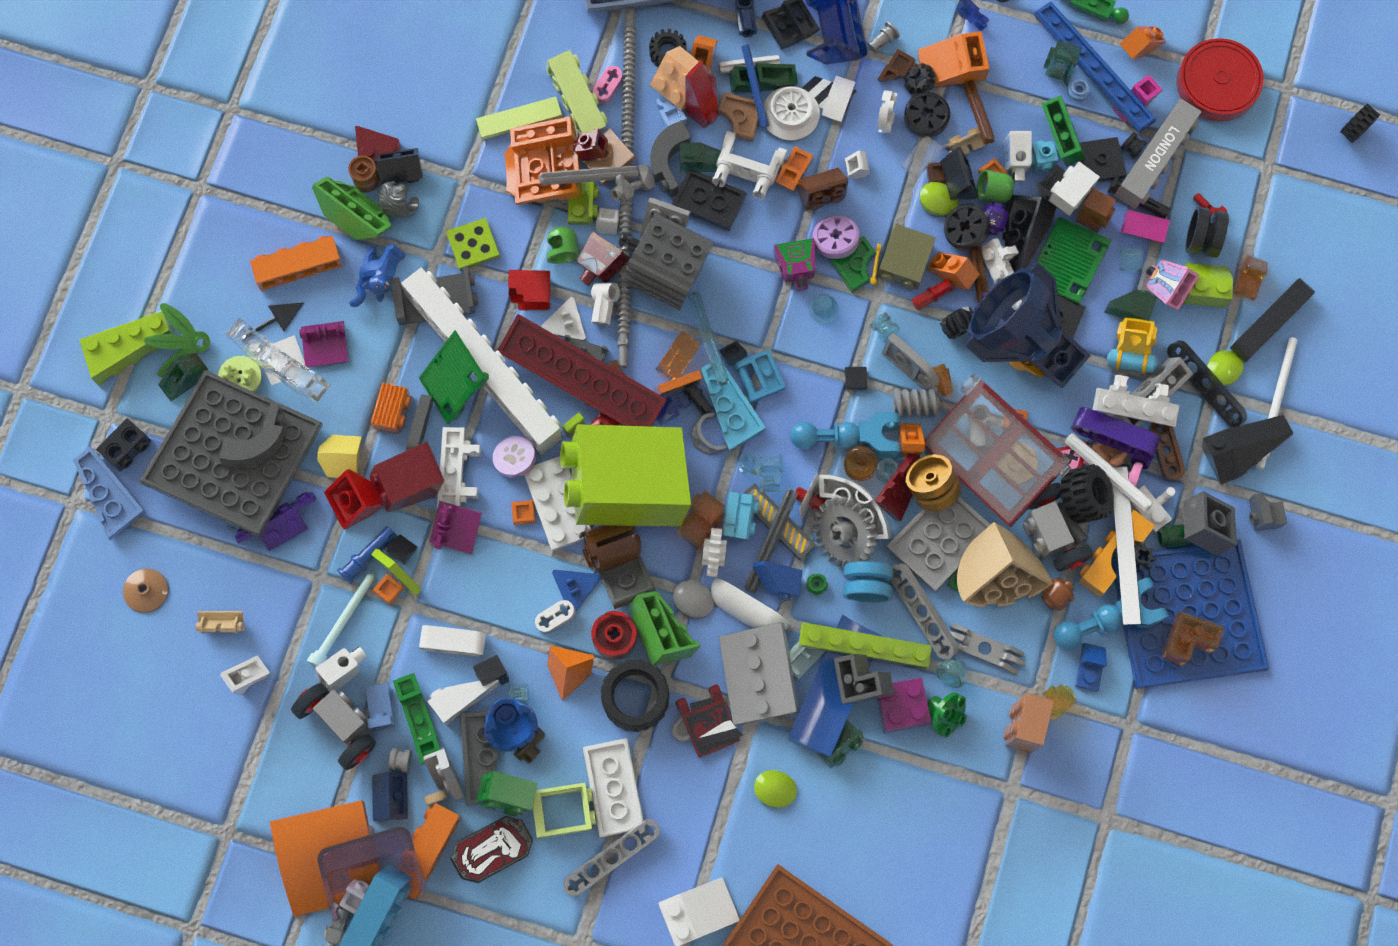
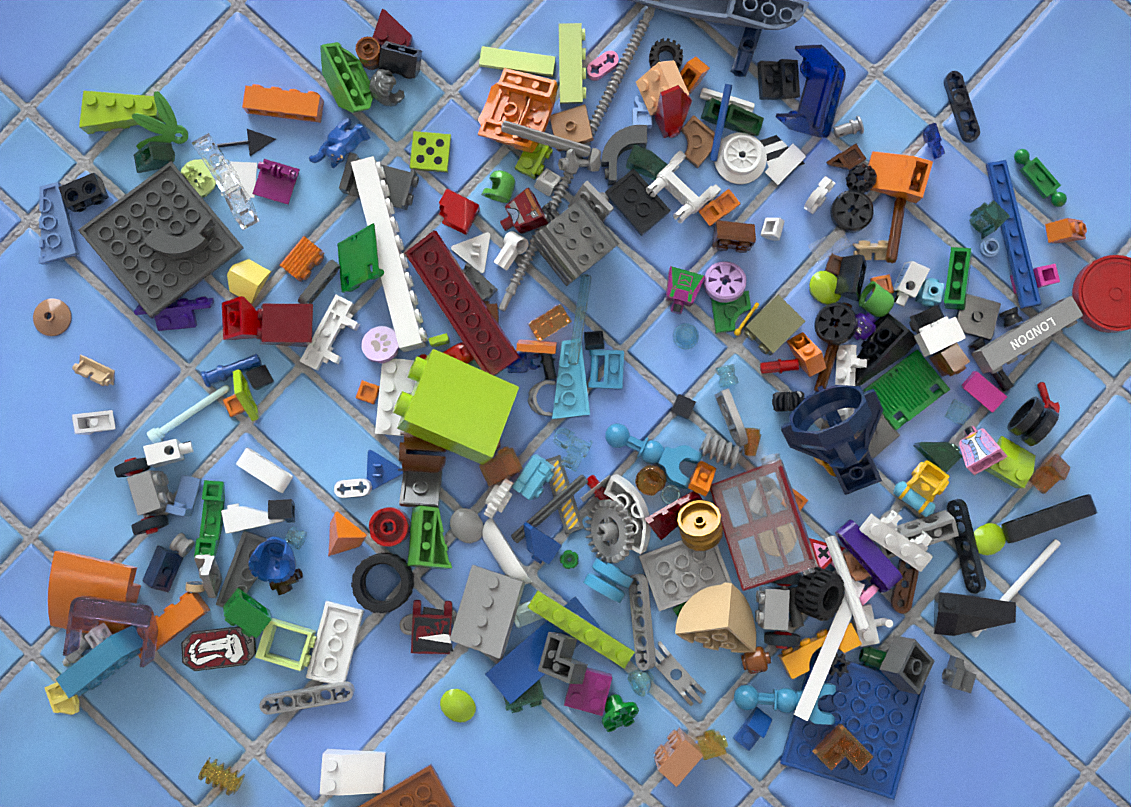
camera: 30 degrees right, 10 degrees up
(455, 527) = (307, 380): magenta hinge -> none
(590, 145) = (557, 113): dark red brick -> none

